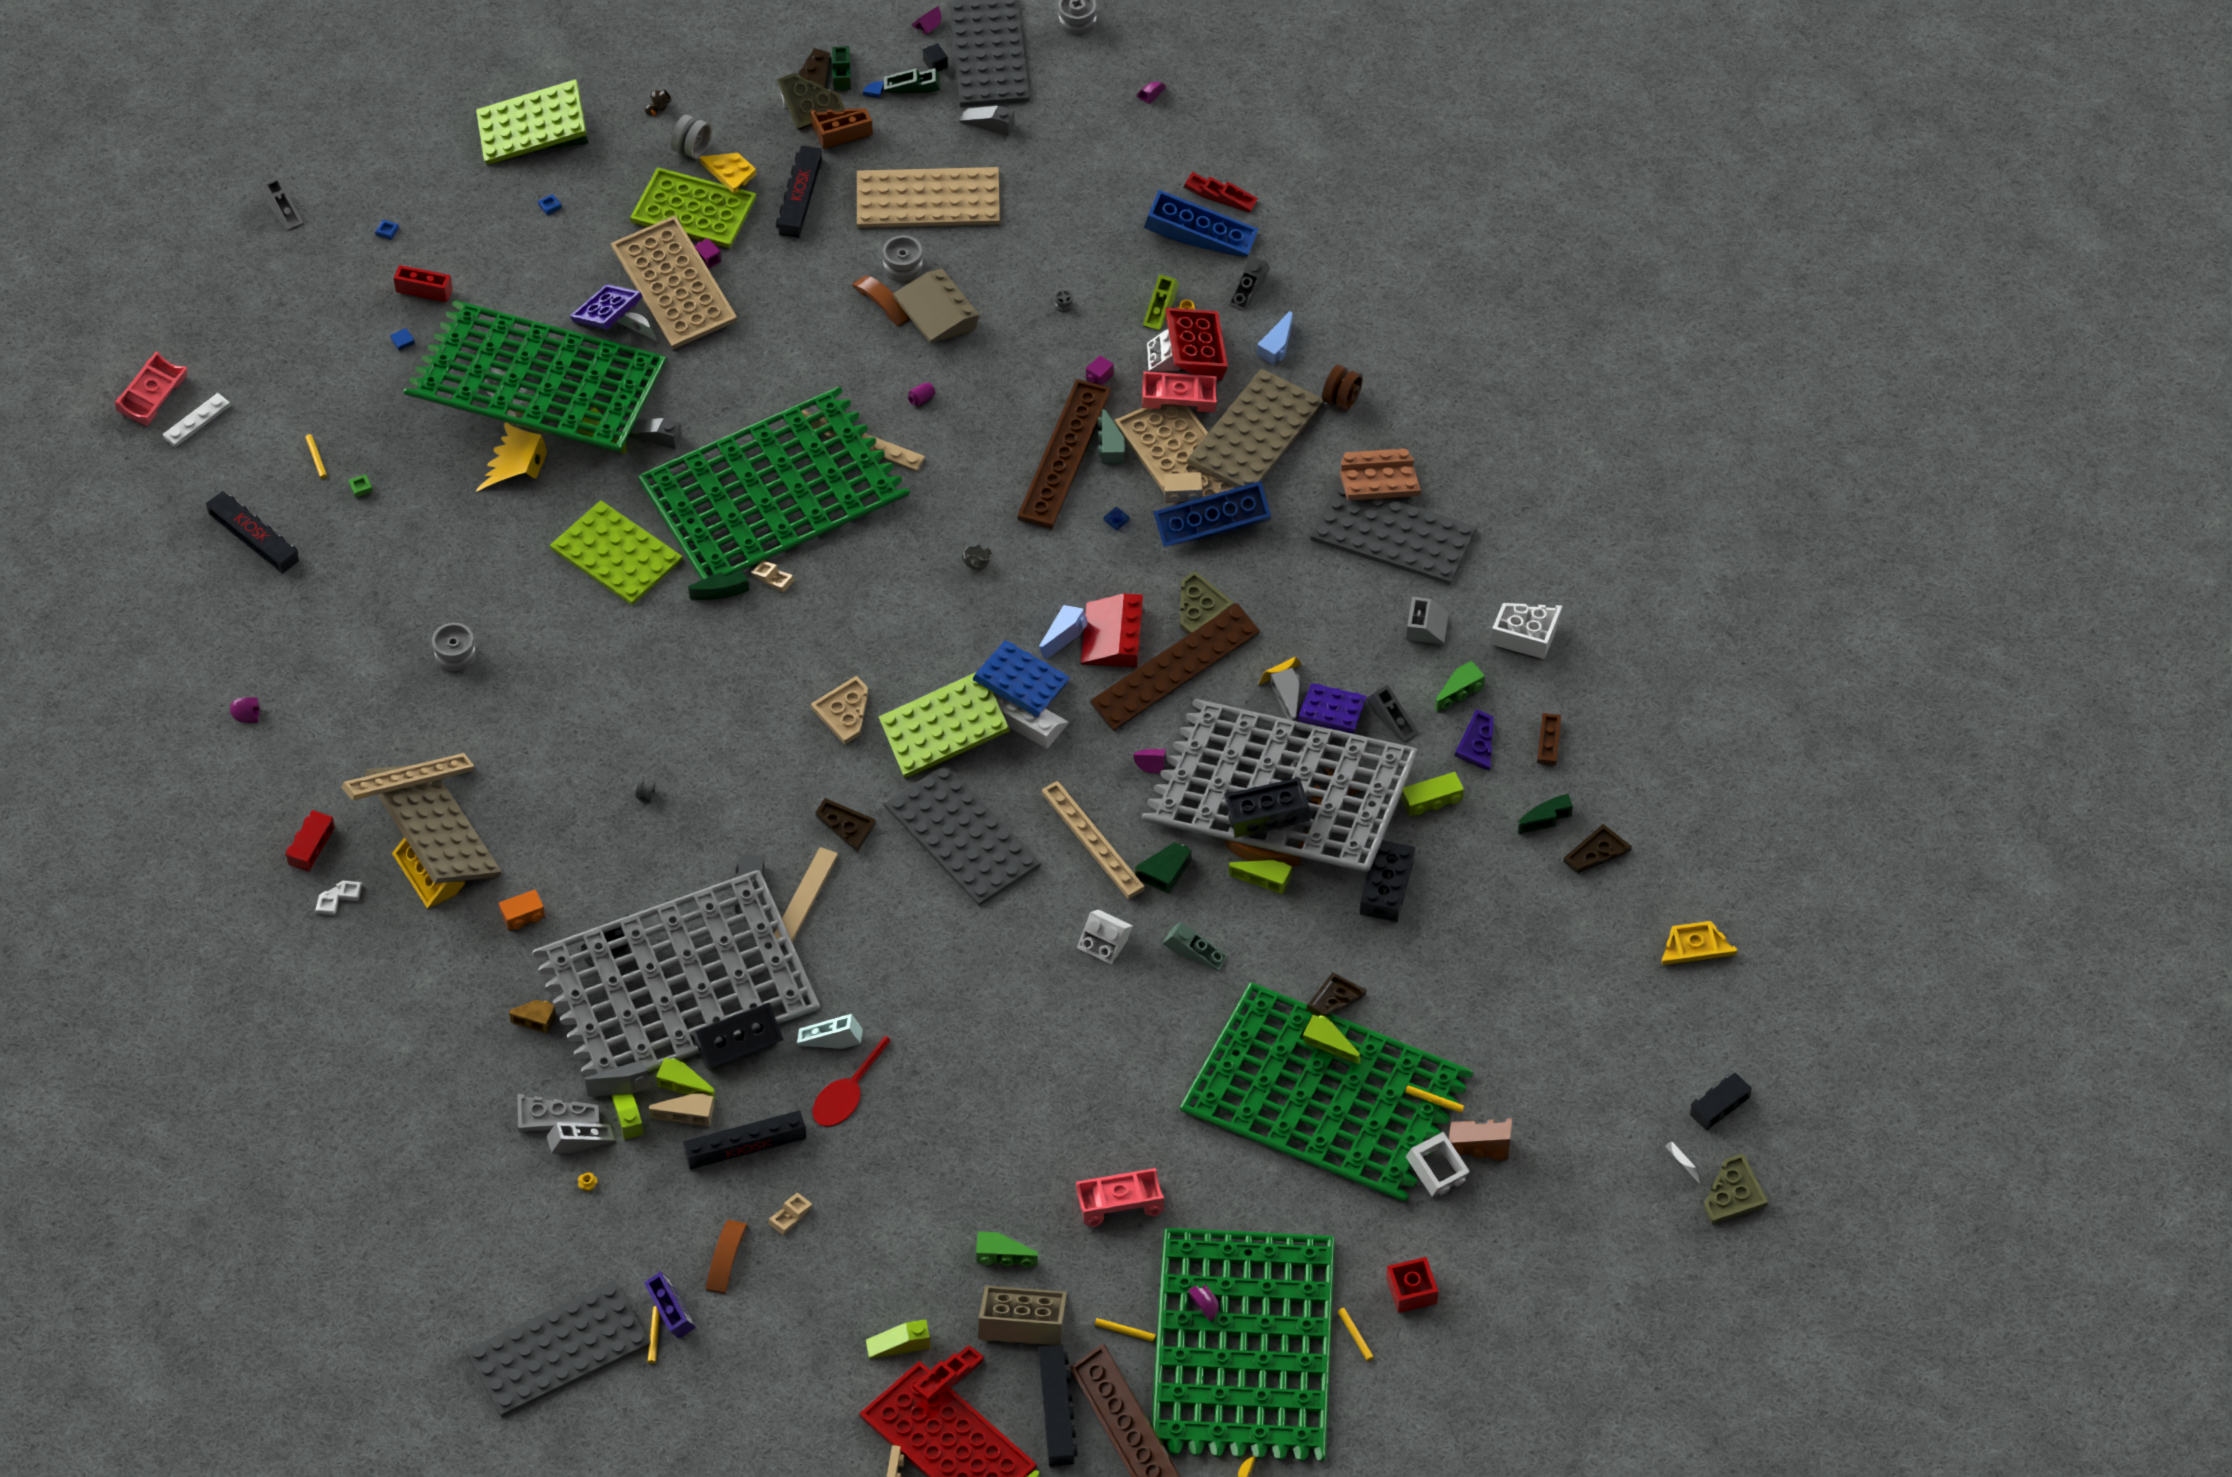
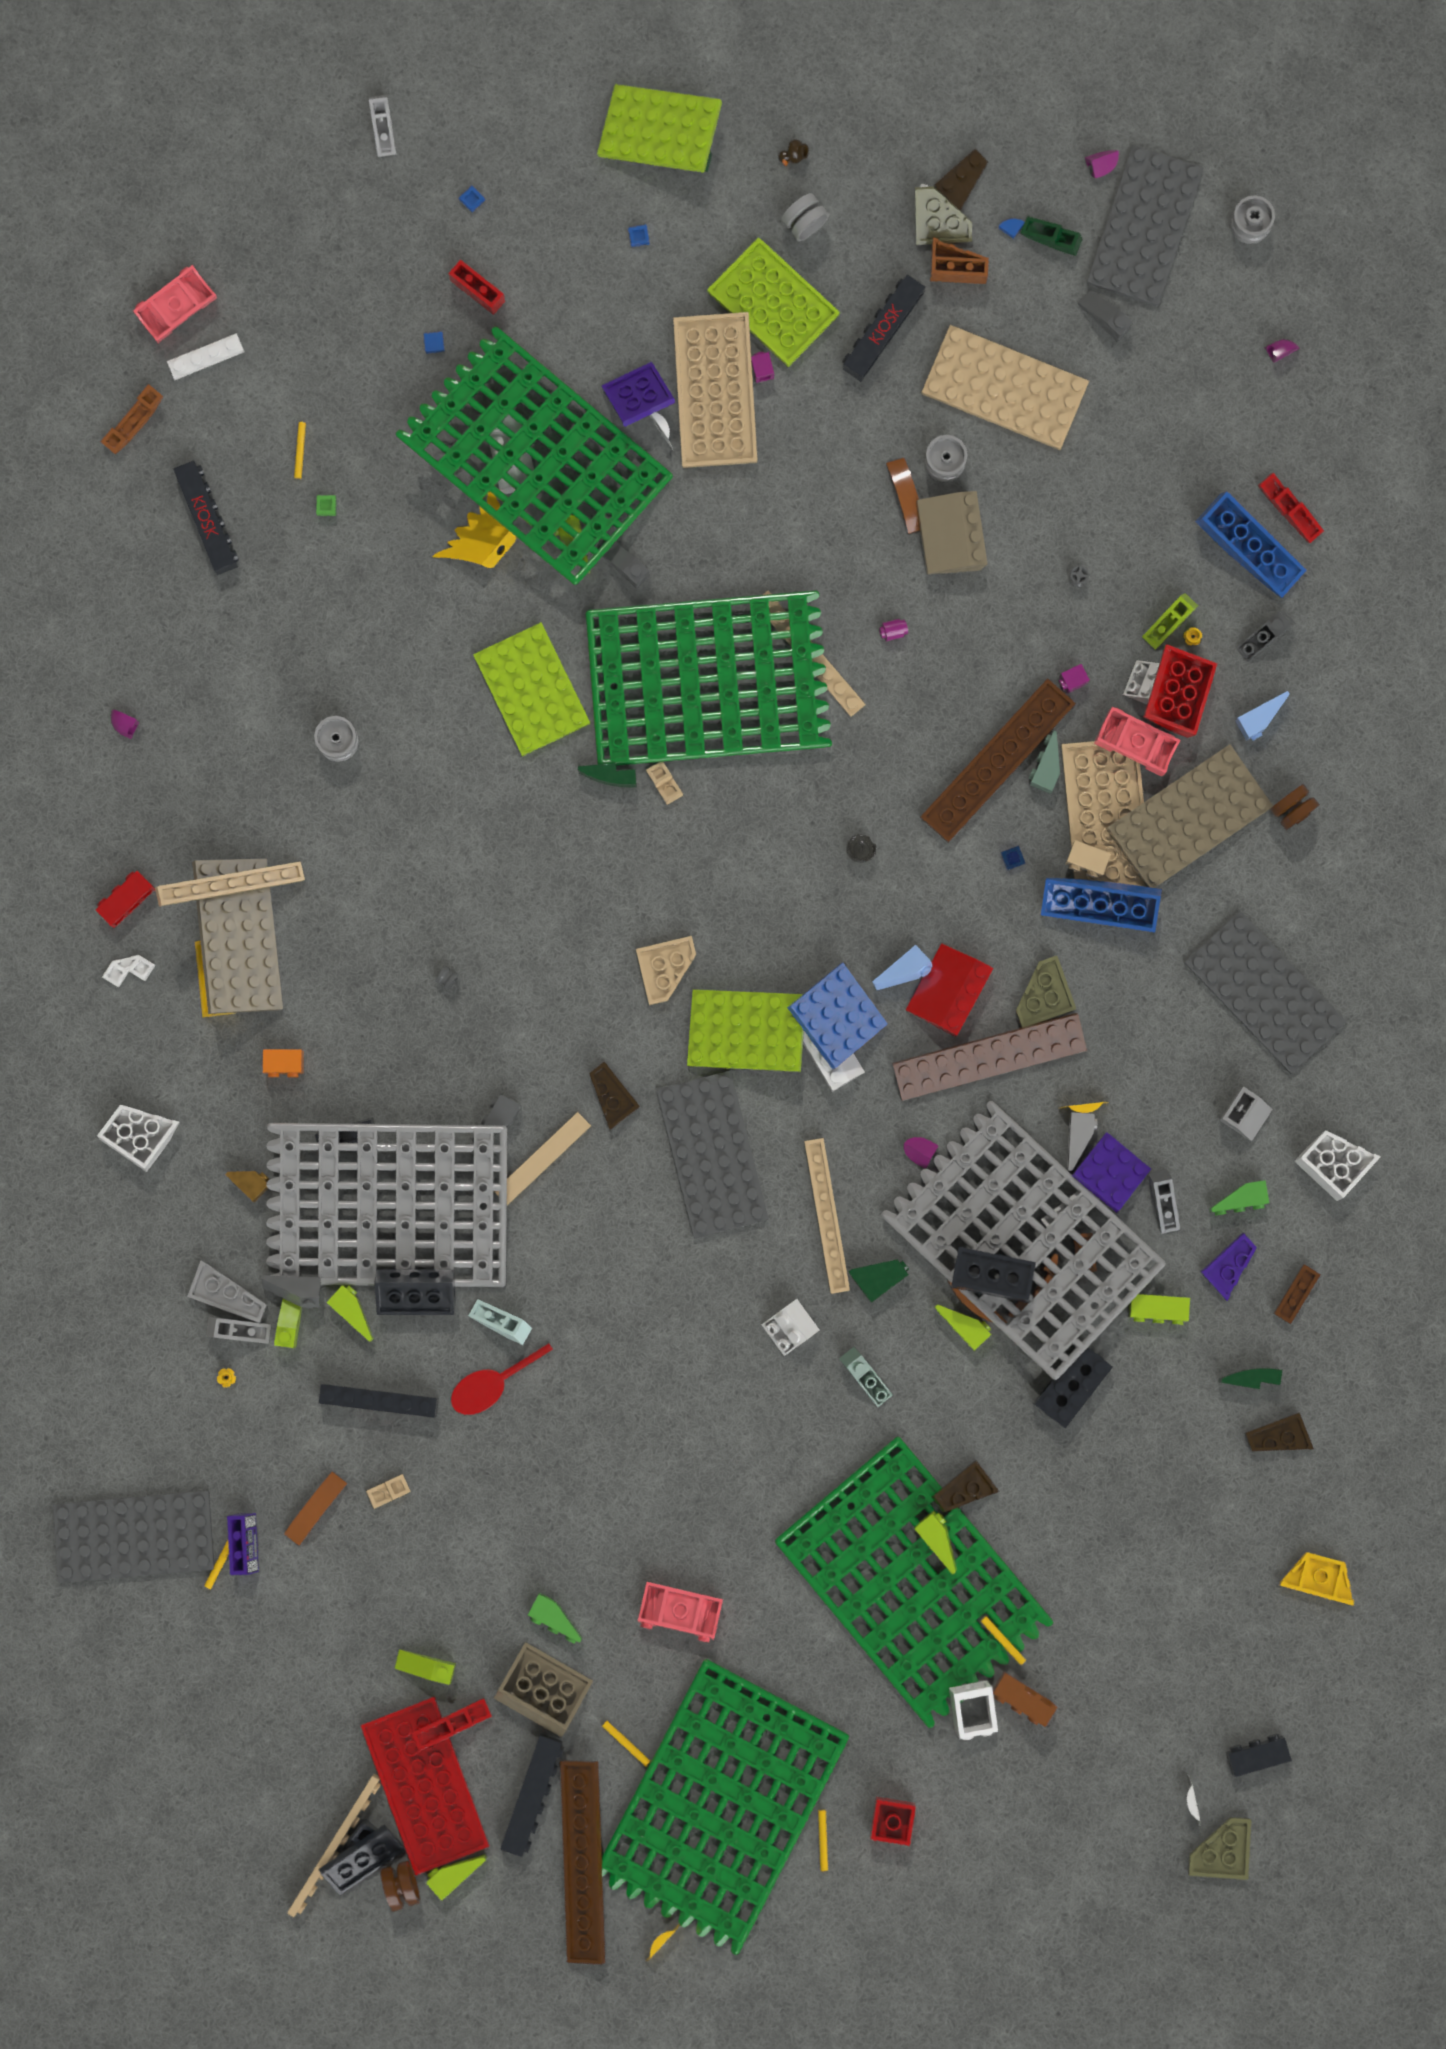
camera: 25 degrees right, 30 degrees up
(152, 485) = (134, 420): none -> dark orange slope
(408, 1017) = (137, 1135): none -> white wedge
(689, 1109) = (346, 1346): tan slope -> none
(729, 169) = (828, 270): yellow wing -> none
(841, 68) = (990, 186): dark green slope -> none
(935, 57) = (1087, 215): black brick -> none
(1205, 1301) = (704, 1757): magenta brick -> none
(1379, 474) = (1281, 923): nougat plate -> none

